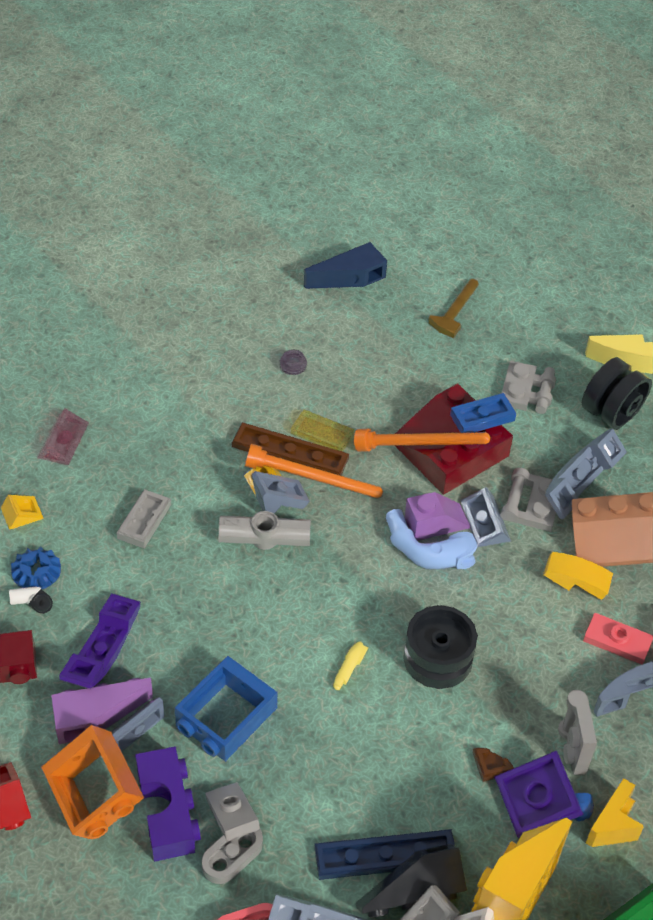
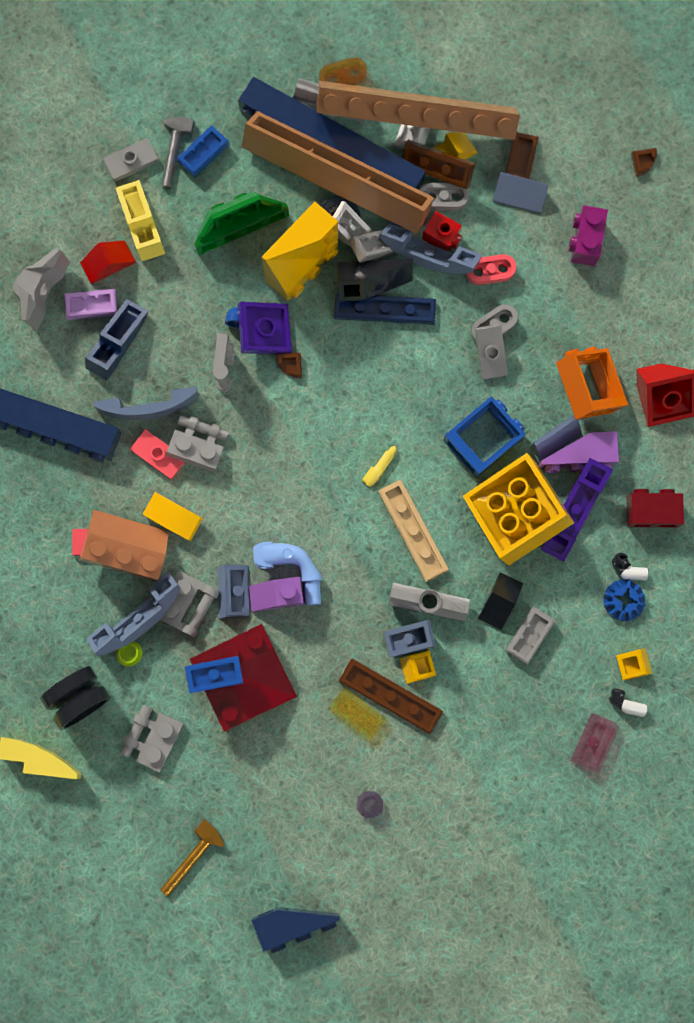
camera: 170 degrees left, 30 degrees up
(33, 470) = (628, 707): none -> arm
(171, 830) = (536, 388): dark purple arch -> none
(172, 628) = (518, 509): none -> yellow slope
(180, 549) = (500, 601): none -> black slope
(259, 457) = (424, 675): orange piece -> none
(296, 604) = (413, 531): none -> tan tile
(366, 440) = (319, 691): orange piece -> none
(440, 646) = (296, 448): black wheel -> none
(574, 445) = (130, 654): none -> lime plate
(577, 643) = (193, 449): none -> light grey plate
(614, 823) = (219, 298): yellow slope -> none

